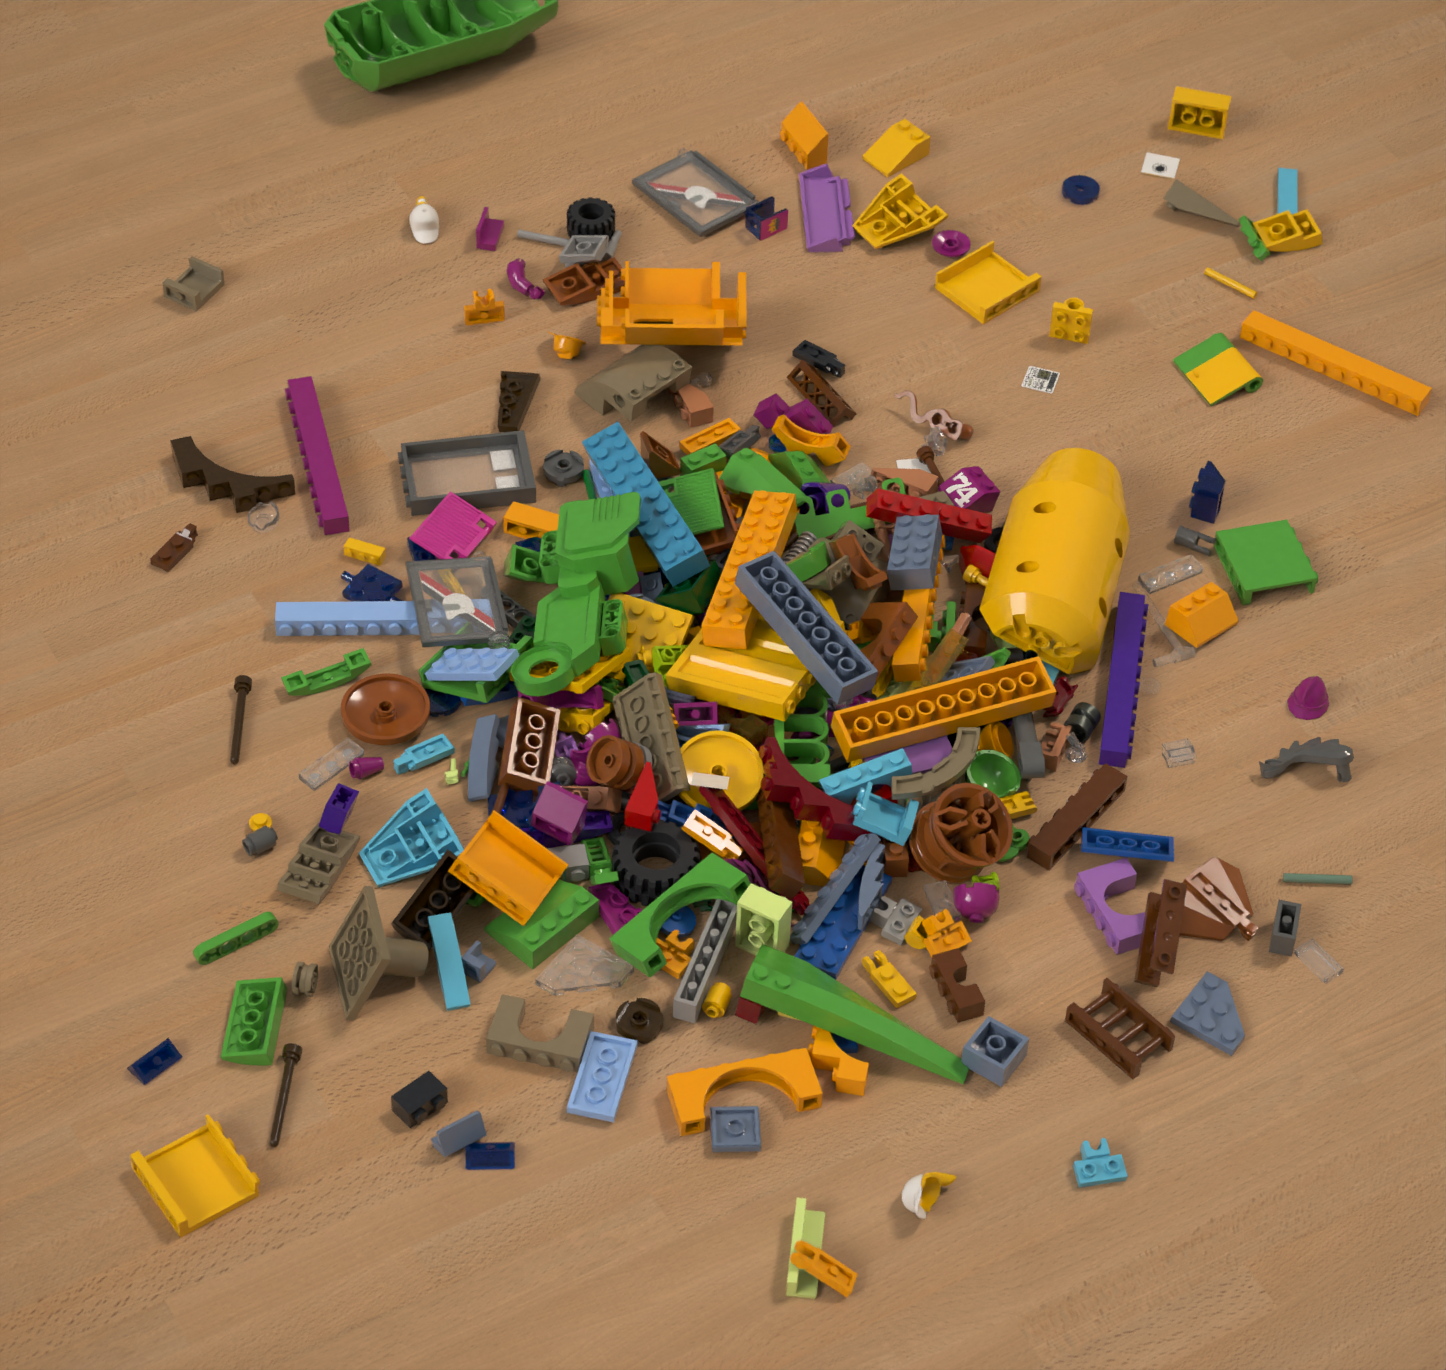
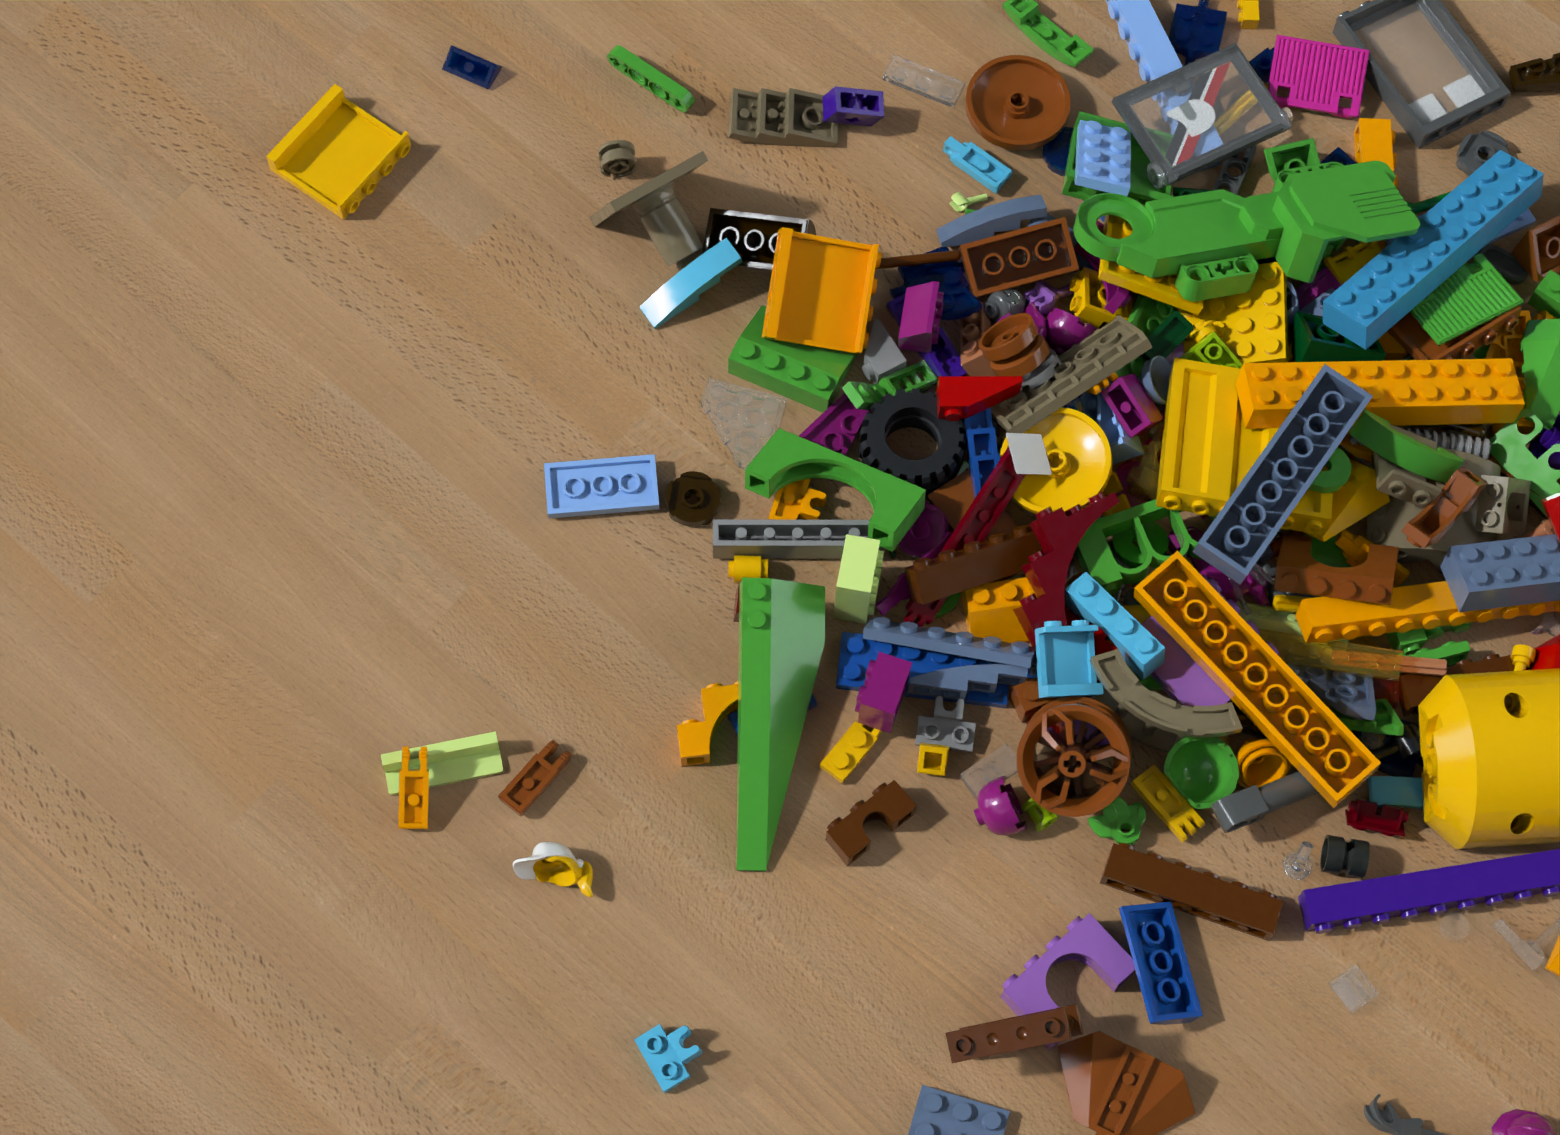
camera: 70 degrees right, 20 degrees up
(254, 1021) = (551, 135): bright green slope -> none
(260, 820) = (815, 46): yellow plate -> none
(260, 840) = (788, 53): dark grey brick -> none
(291, 1055) = (518, 184): dark brown piece -> none
(365, 766) = (934, 114): magenta cone -> none
(410, 841) = (845, 195): medium azure wedge -> none
(419, 1099) = (504, 320): black brick -> none
(459, 1134) = (471, 372): sand blue panel -> none
(477, 964) = (709, 314): sand blue panel -> none
(490, 1156) = (464, 412): clear blue slope -> none
(562, 1052) = (618, 374): dark tan arch -> none
(681, 920) = (845, 499): blue piece -> none
(711, 835) = (959, 483): hinge -> none
(735, 1129) = (579, 643): sand blue plate -> none
(787, 1071) = (611, 583): light orange arch -> none
(841, 1191) = (533, 779): none -> dark orange hinge
(865, 933) = (882, 691): none -> magenta brick
(943, 933) = (934, 788): light orange plate -> none
(995, 1051) = (782, 890): sand blue brick -> none
(1054, 745) = (1290, 833): nougat hinge -> none
(1114, 1047) = (850, 1028): reddish brown fence -> none

